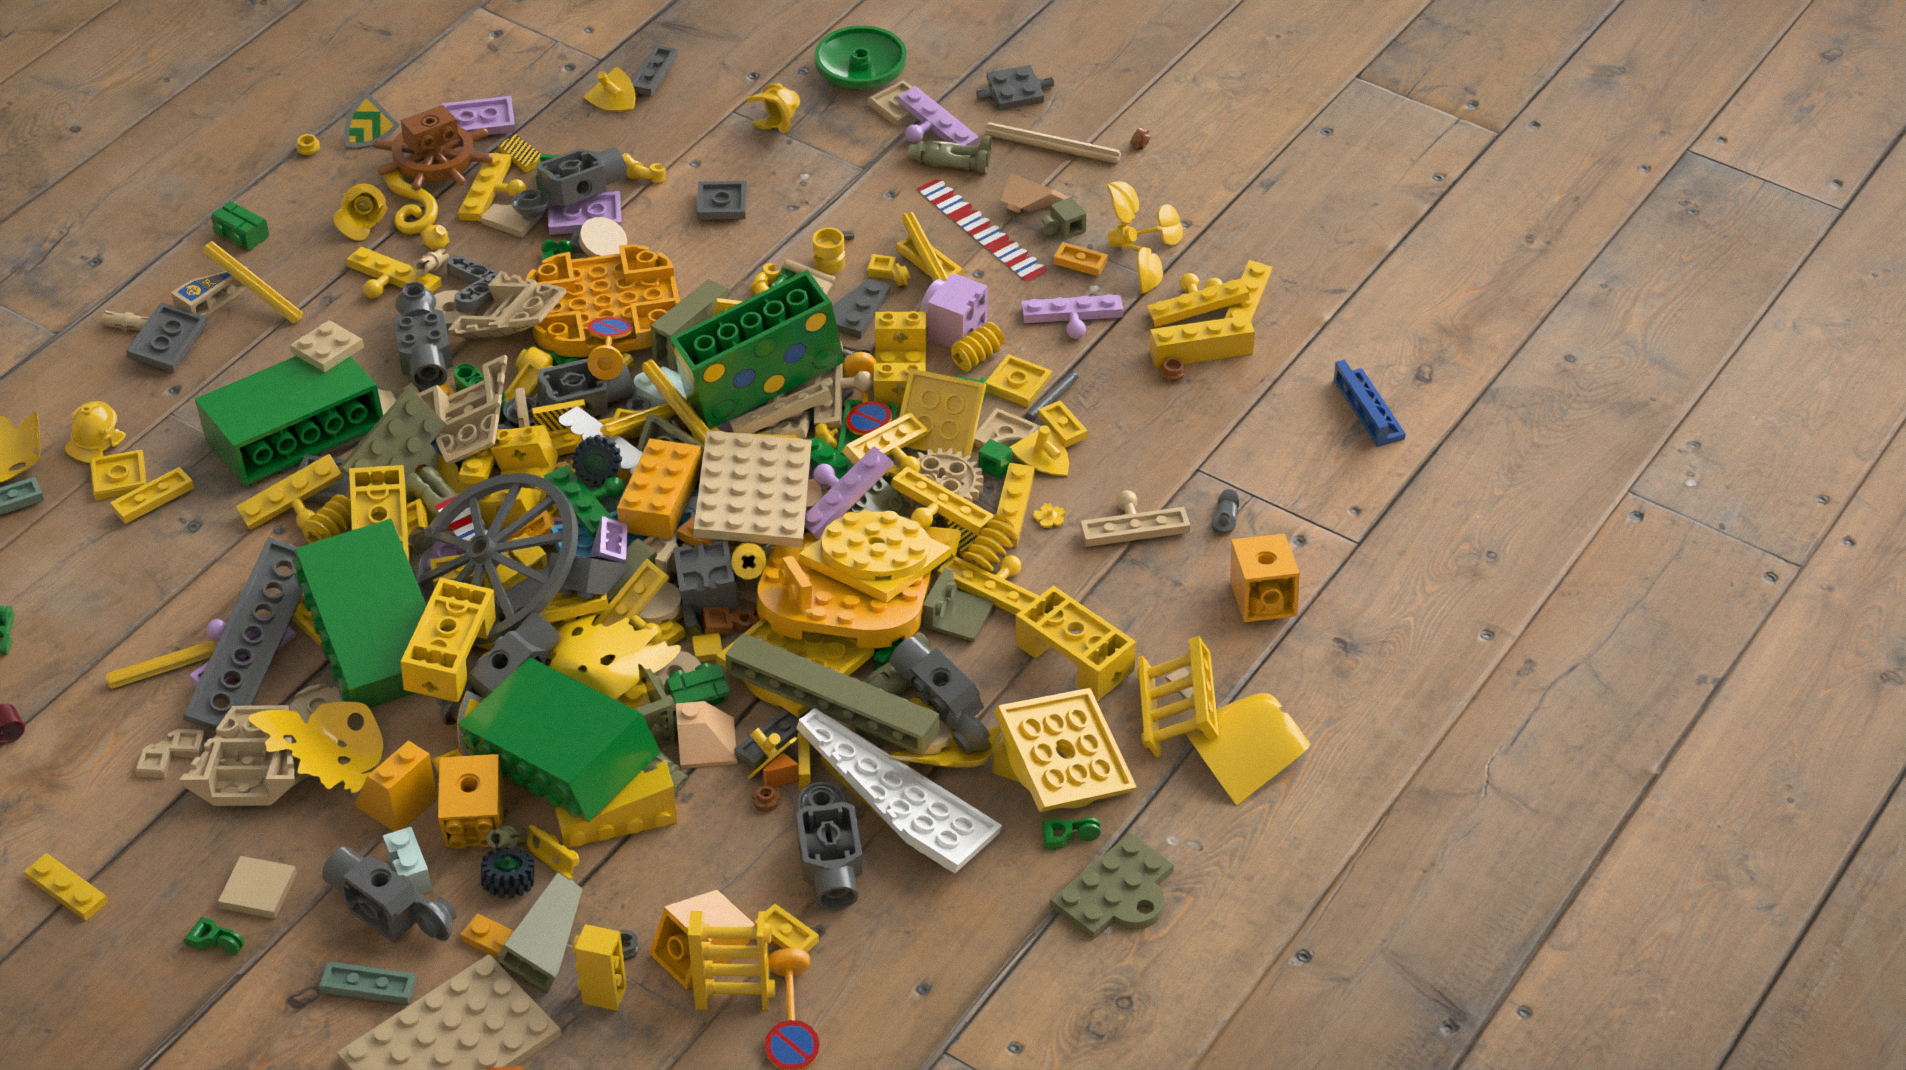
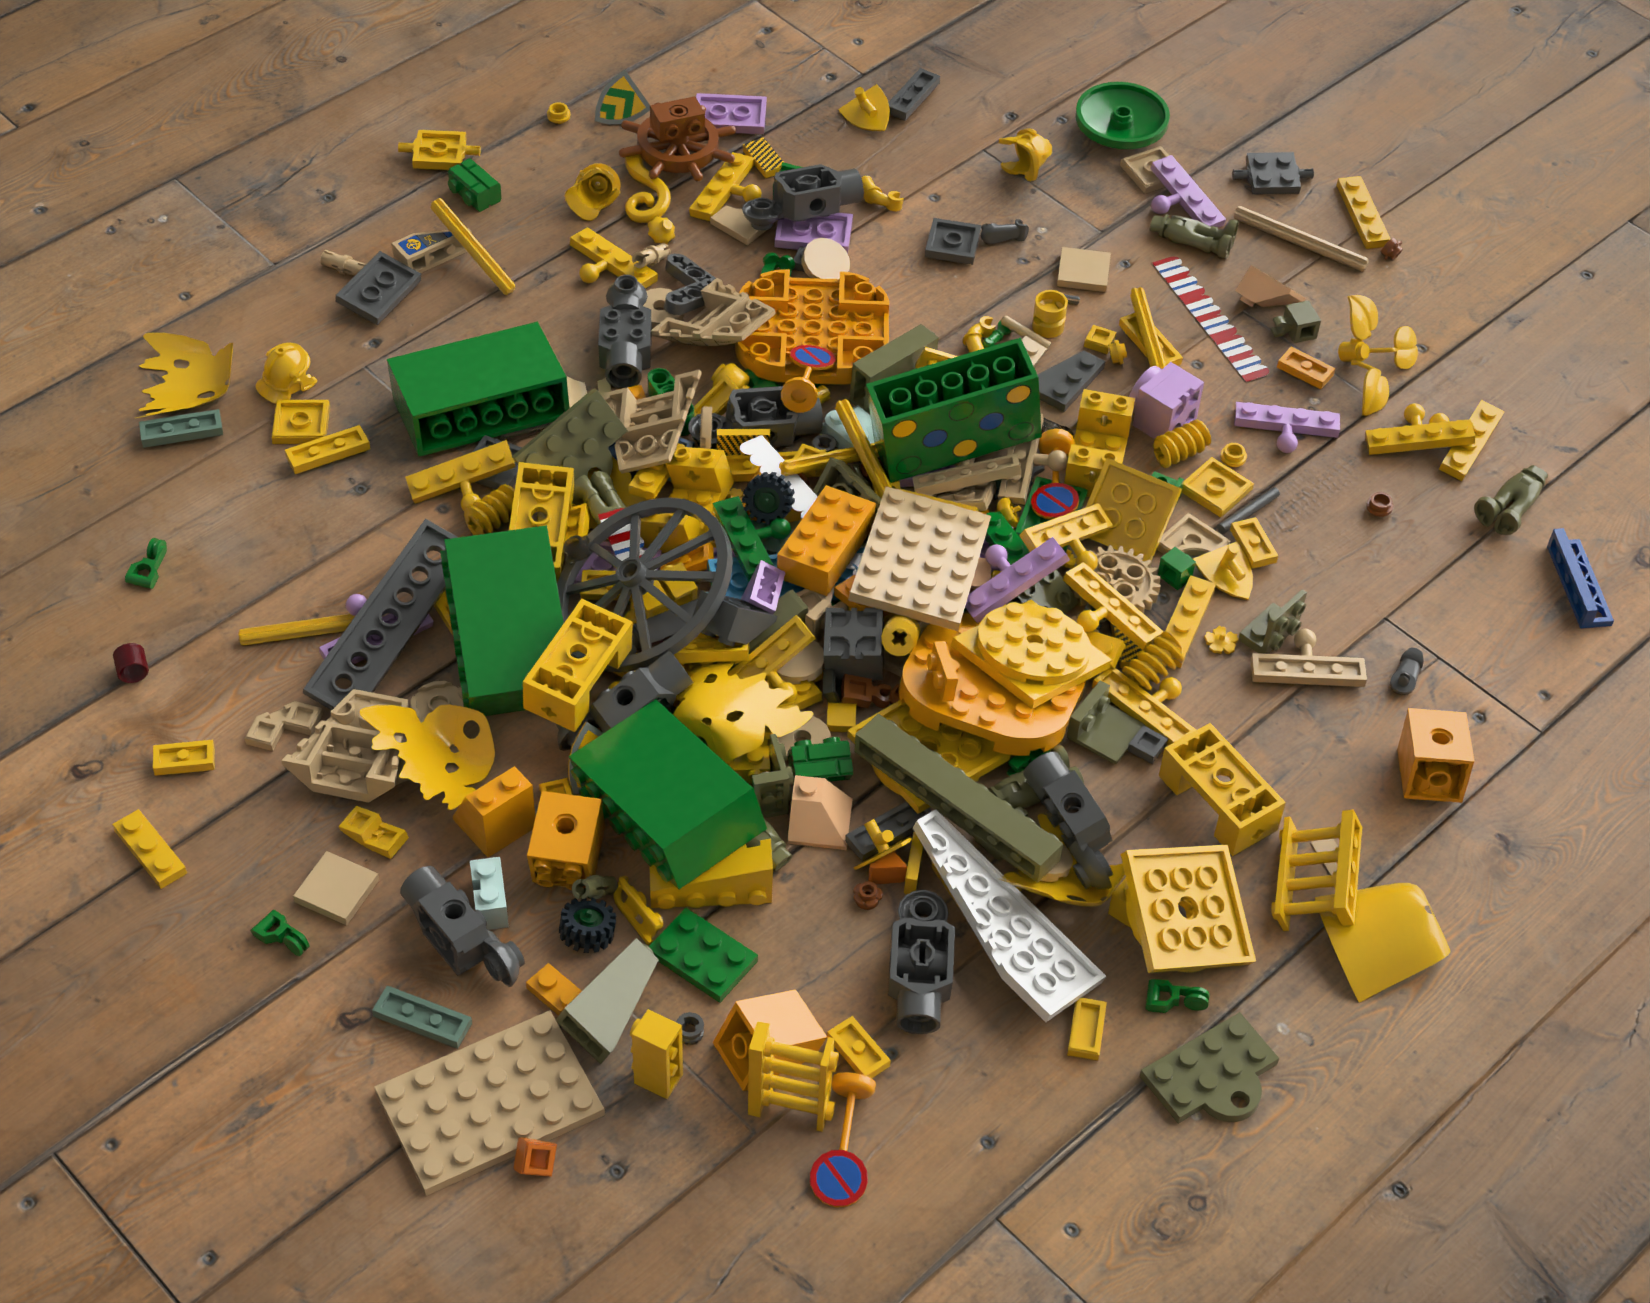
camera: 10 degrees right, 5 degrees up
(79, 799) = (183, 757): none -> yellow plate
(195, 198) = (438, 149): none -> yellow plate
(277, 831) = (372, 833): none -> yellow slope
(327, 346) = (527, 327): tan plate -> none
(623, 879) = (703, 955): none -> green plate
(762, 186) = (996, 233): none -> dark grey piece
(852, 205) = (1084, 269): none -> tan tile
(993, 874) = (1087, 1029): none -> yellow tile
(999, 618) = (1147, 744): none -> dark grey plate
(1028, 349) = (1233, 455): none -> yellow plate
(1096, 492) = (1274, 625): none -> olive bracket
(1106, 109) = (1363, 212): none -> yellow plate
(1202, 340) = (1417, 479): yellow brick -> none
(1299, 333) = (1522, 489): none -> olive piece

